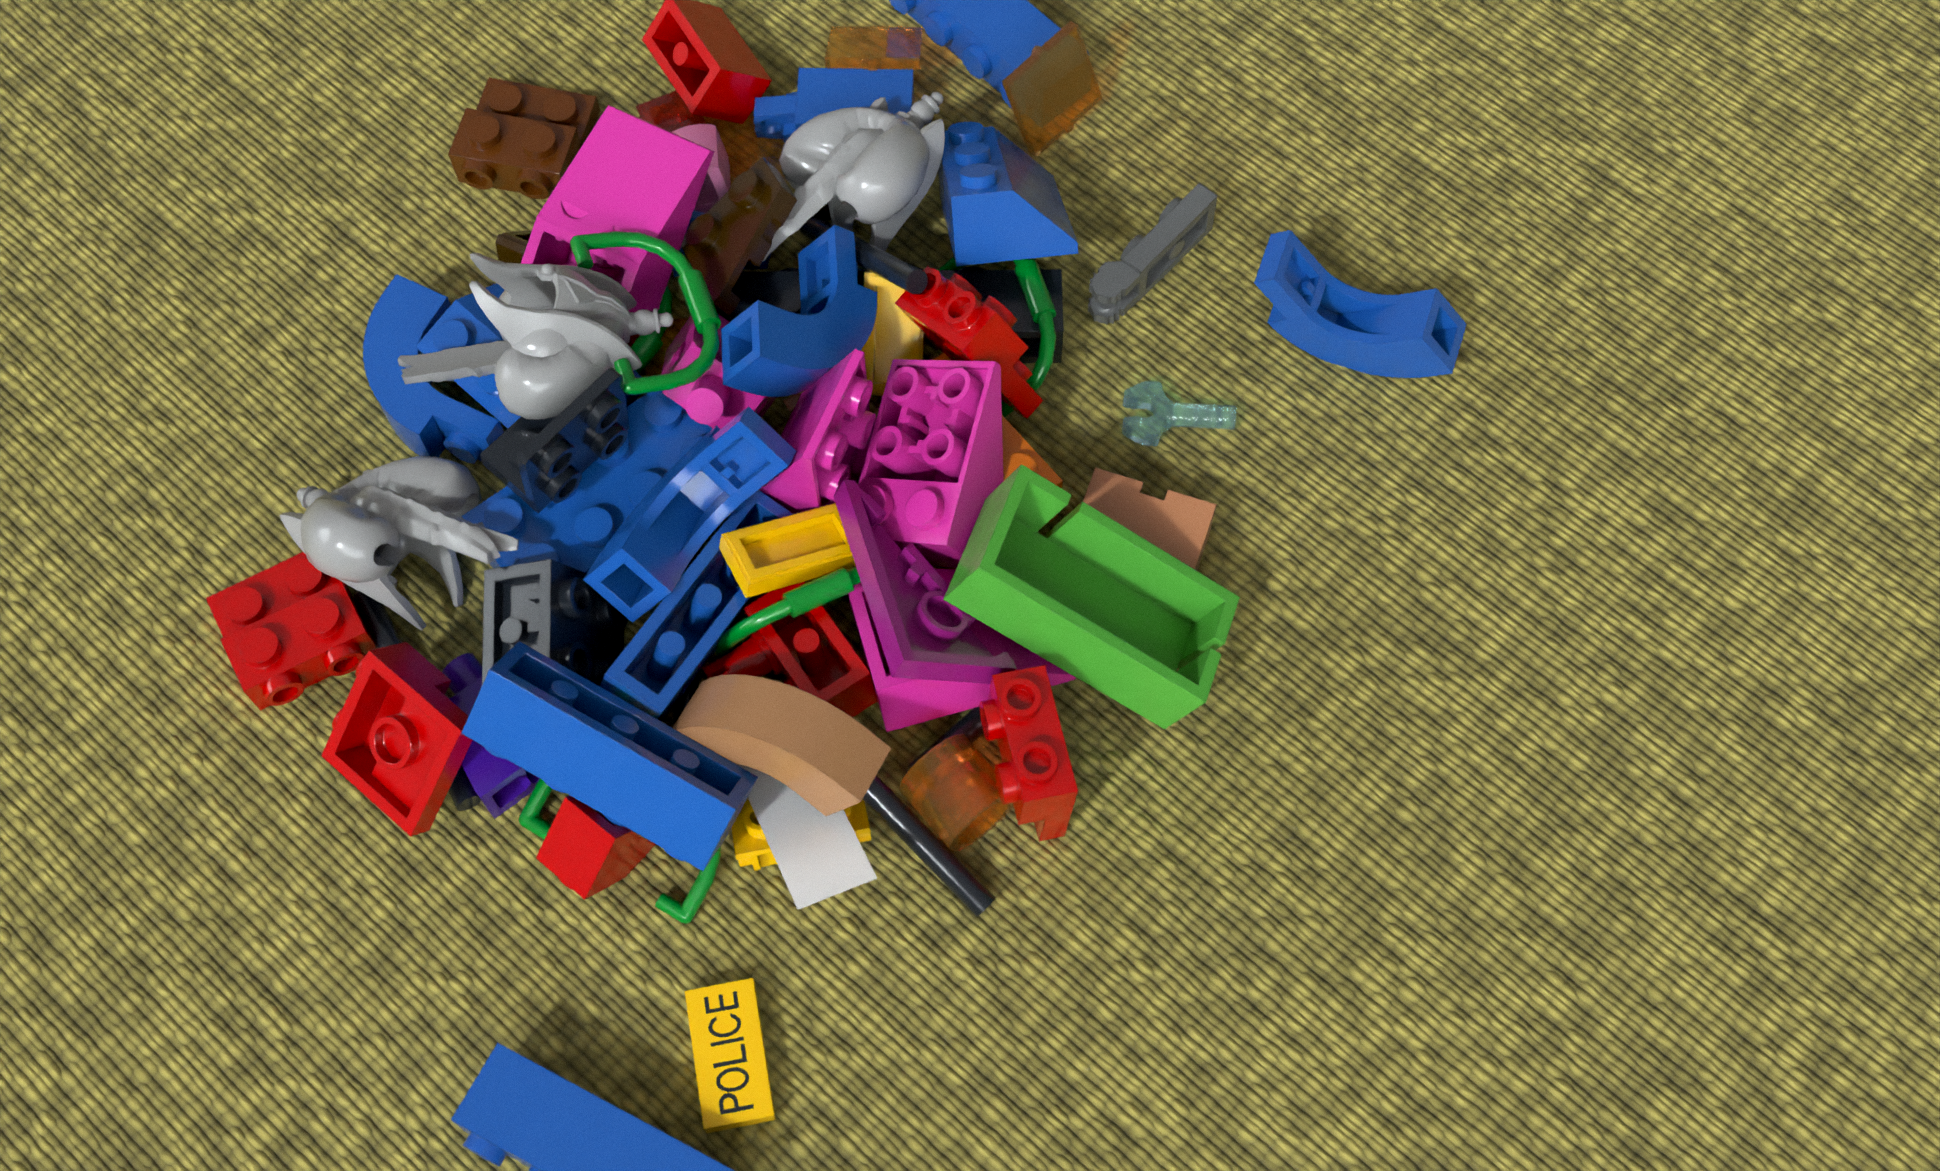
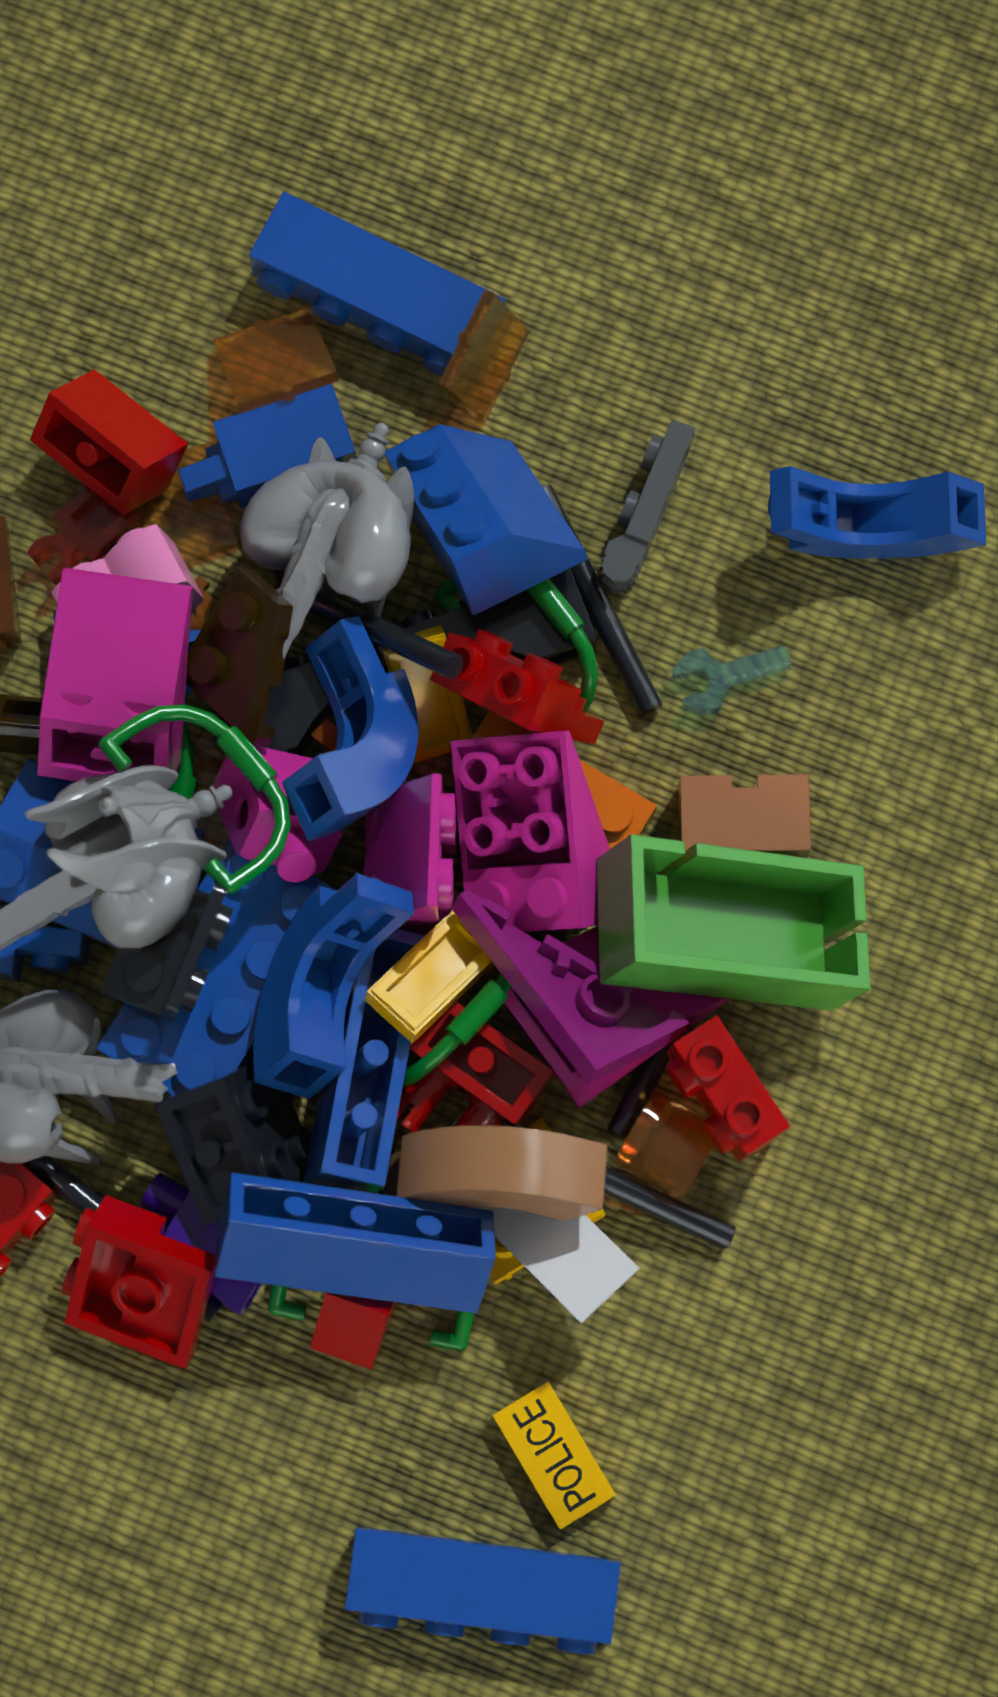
camera: 20 degrees left, 15 degrees up
(1081, 338) = (611, 629): none -> black bar

